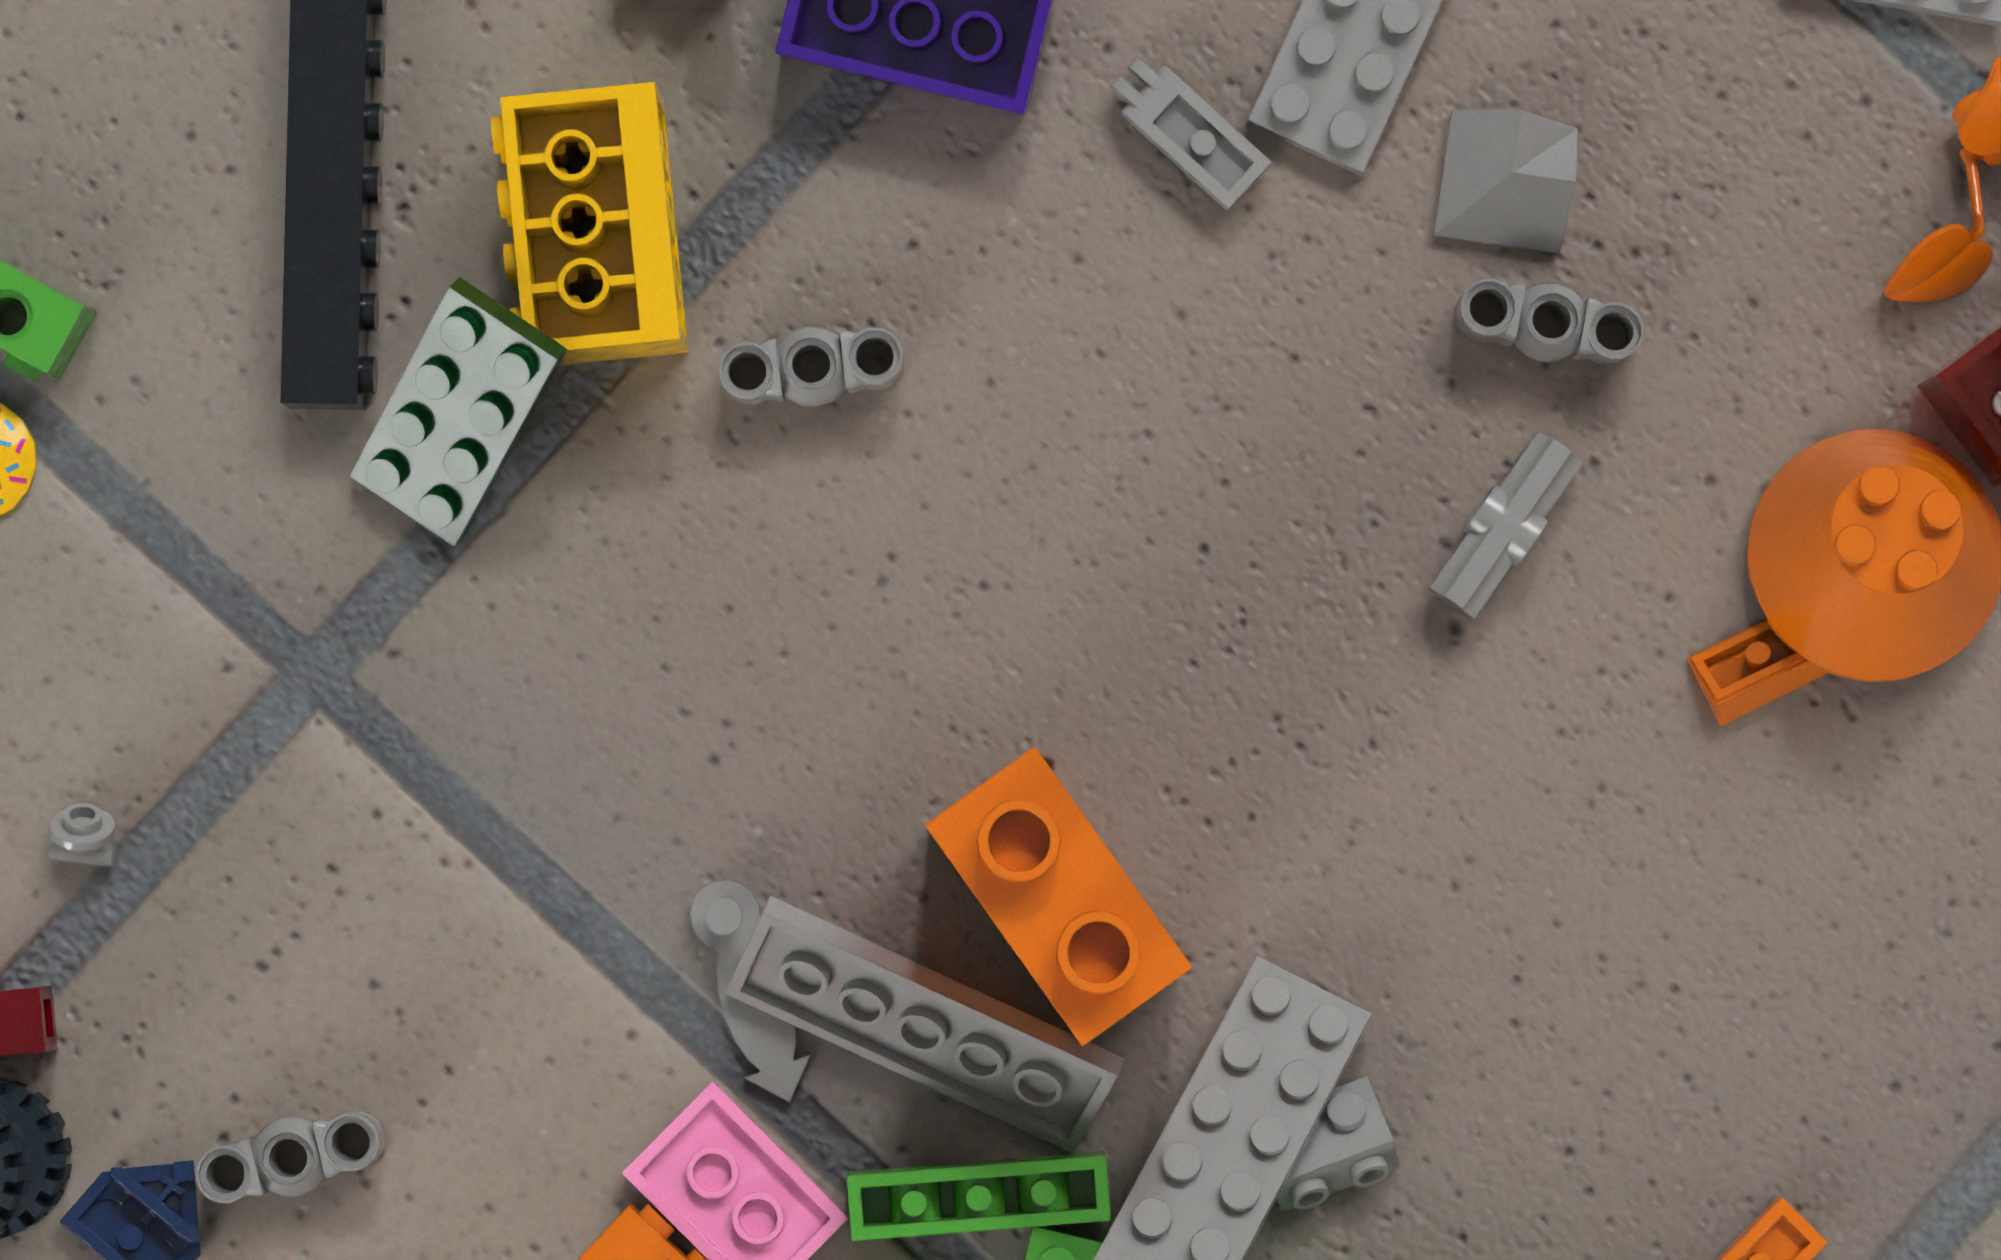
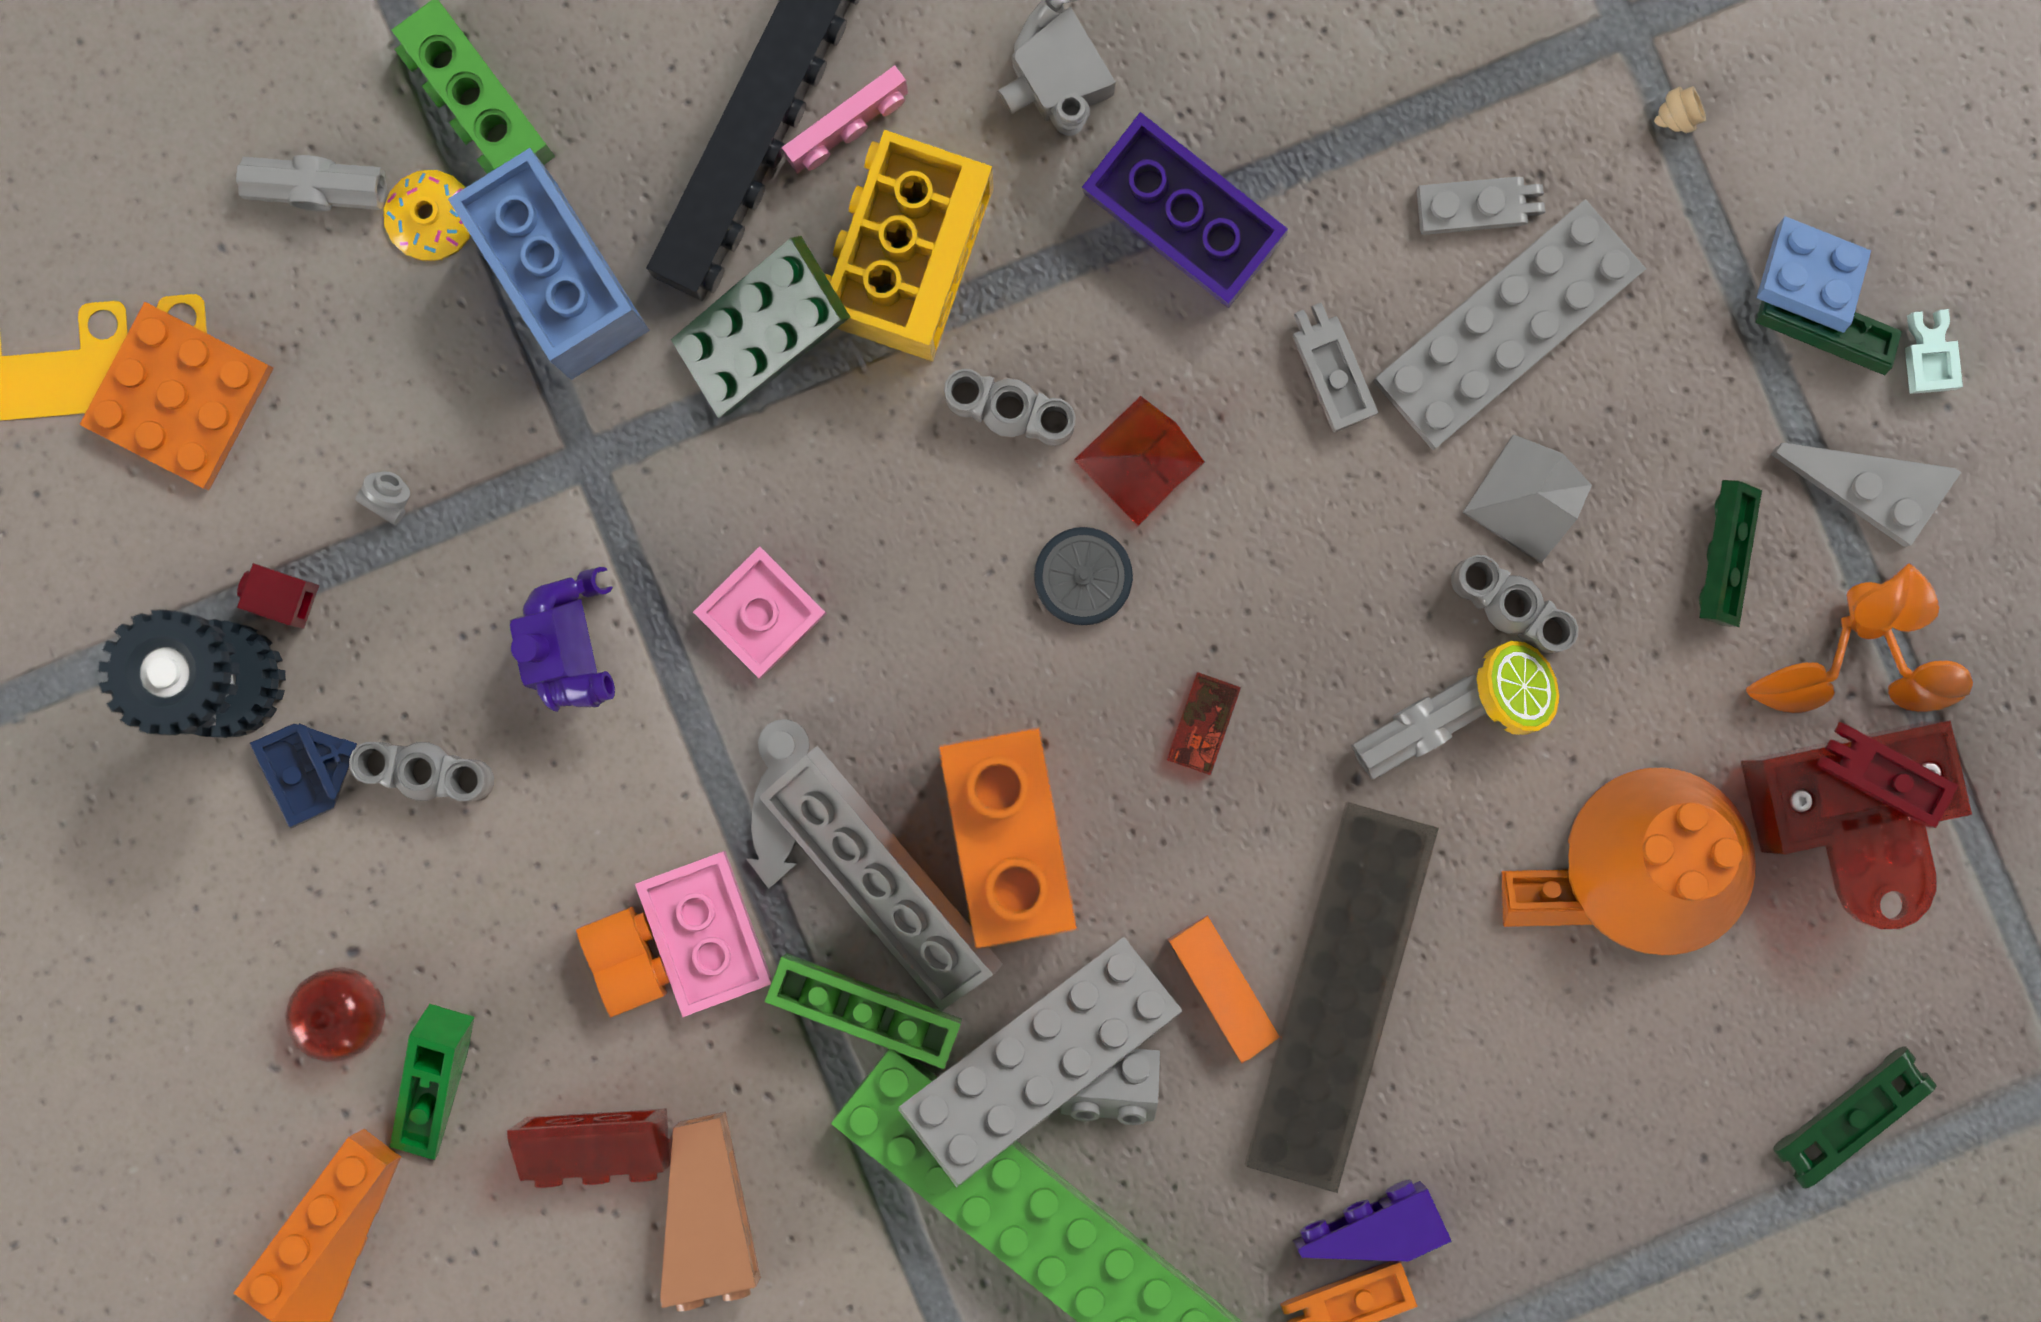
camera: 25 degrees right, 0 degrees up
(160, 455) = (548, 264): none -> medium blue brick
(387, 923) = (556, 647): none -> dark purple torso
(443, 103) = (846, 121): none -> bright pink plate
(619, 764) = (759, 612): none -> bright pink plate
(1000, 533) = (1083, 576): none -> dark grey wheel
(1003, 356) = (1140, 460): none -> clear red slope
(1233, 647) = (1203, 723): none -> clear red tile
(1410, 963) = (1223, 989): none -> orange slope
(1559, 905) = (1341, 997): none -> clear smoke plate
(1600, 423) = (1518, 688): none -> tile
(1749, 1164) = (1387, 1230): none -> dark purple slope
(1785, 135) = (1730, 553): none -> dark green plate

